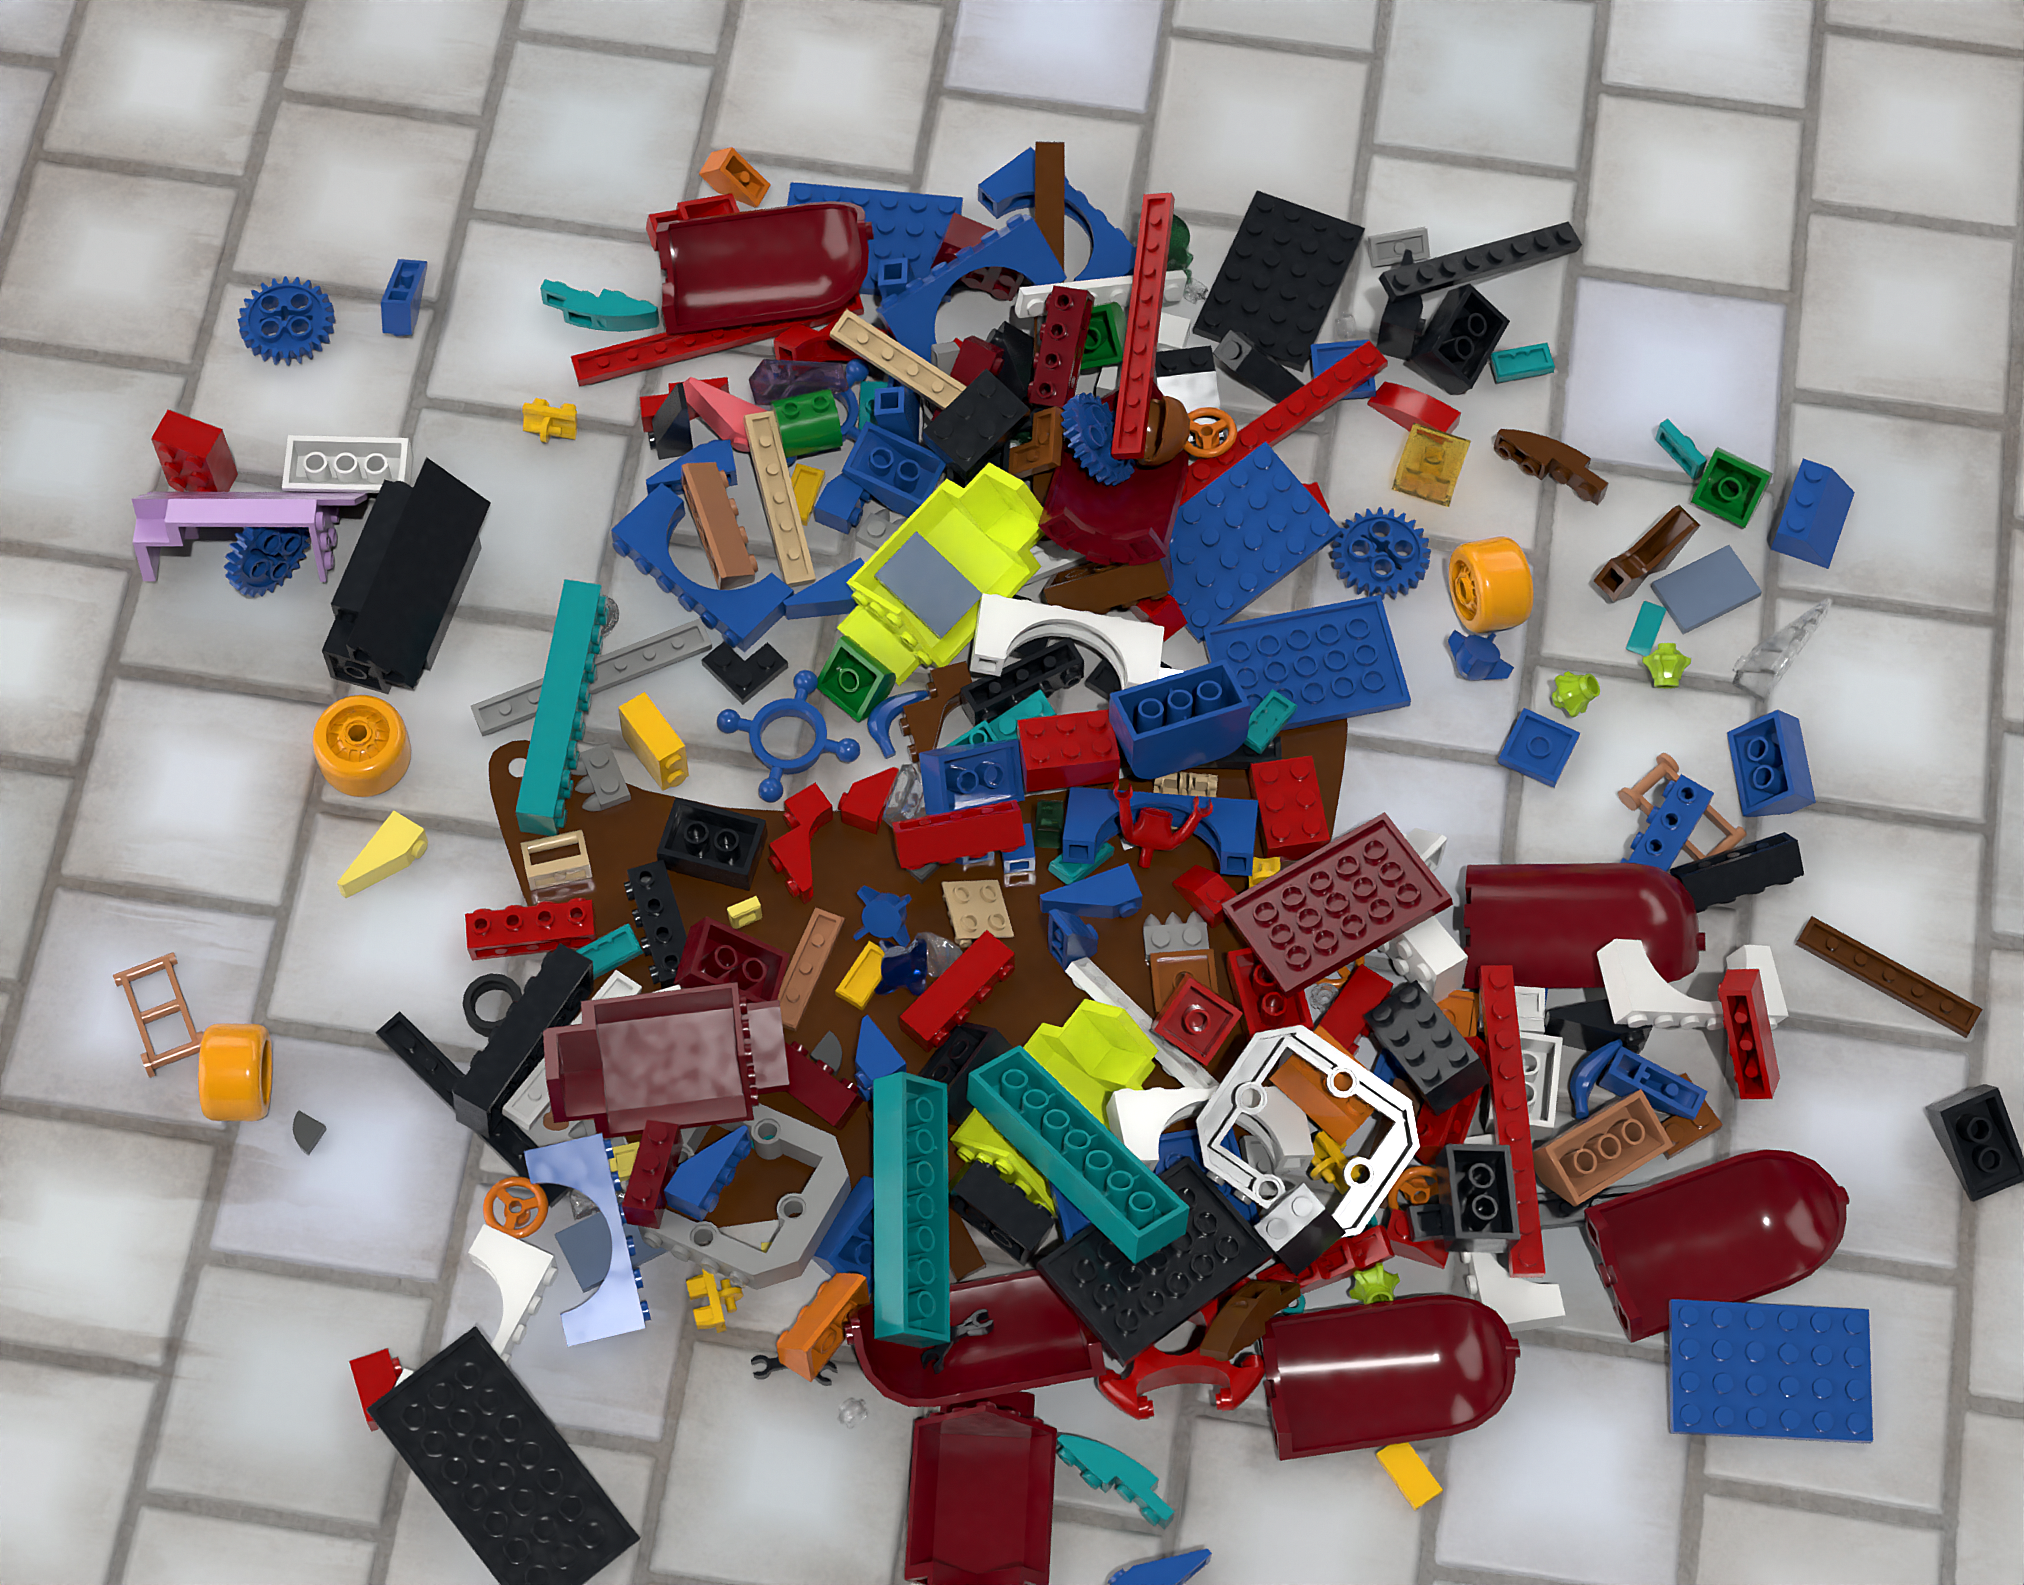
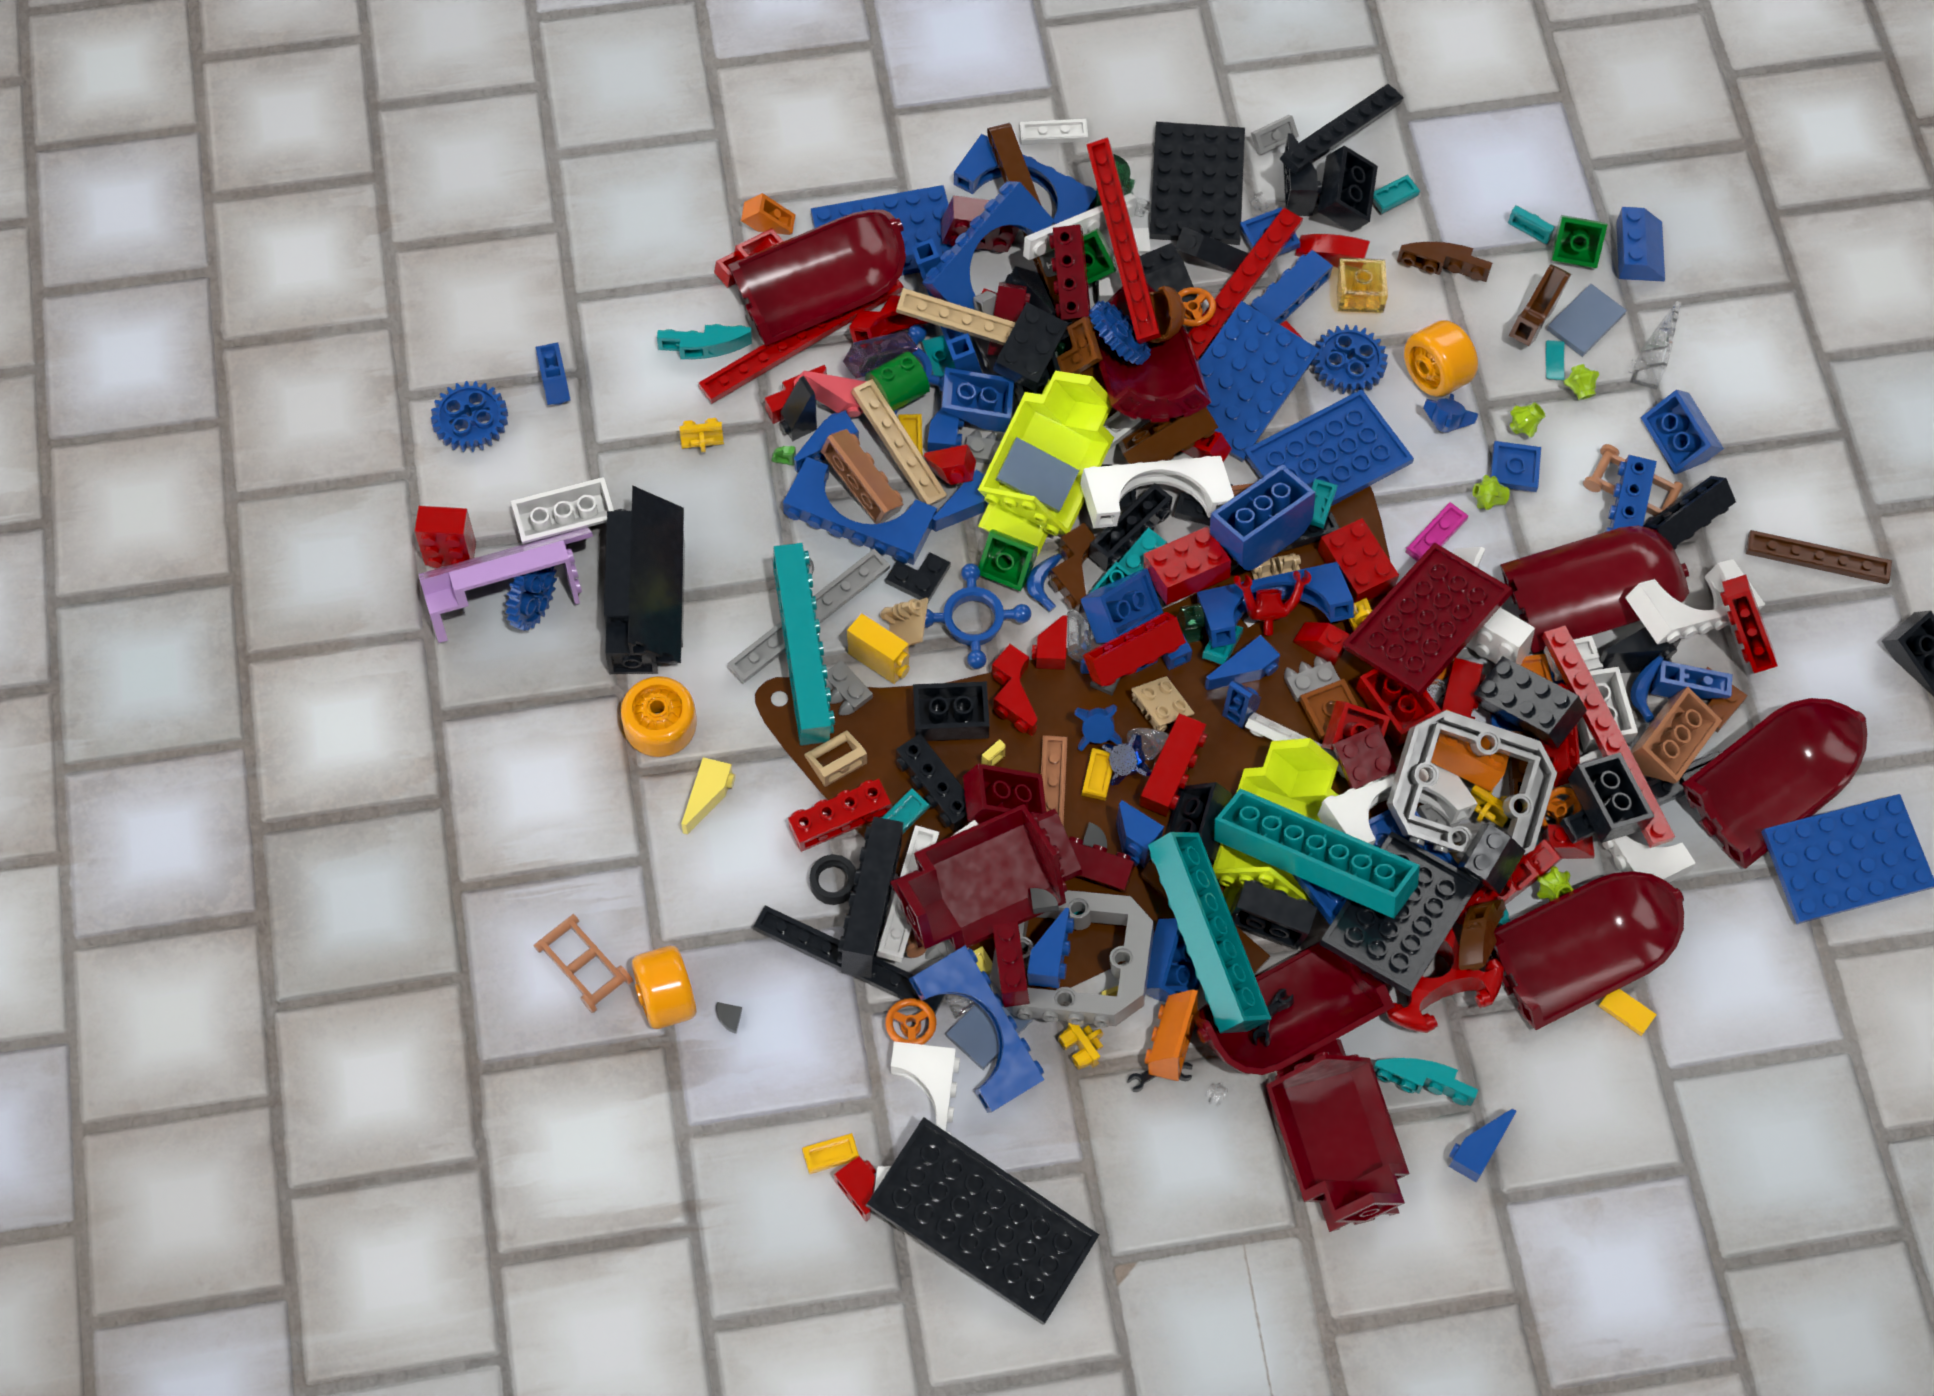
camera: 20 degrees left, 0 degrees up
(360, 1335) = (830, 1153): none -> yellow tile
(638, 473) = (784, 455): none -> bright green tile
(703, 719) = (907, 620): none -> tan hinge
(723, 1109) = (1043, 901): none -> dark grey tile
(835, 542) = (952, 464): none -> red slope
(1126, 168) = (1053, 131): none -> white tile
(1192, 1053) = (1364, 757): none -> dark red plate
(1343, 445) = (1293, 287): none -> blue brick
(1411, 799) = (1438, 531): none -> dark pink tile
(1491, 771) = (1490, 493): none -> lime rock

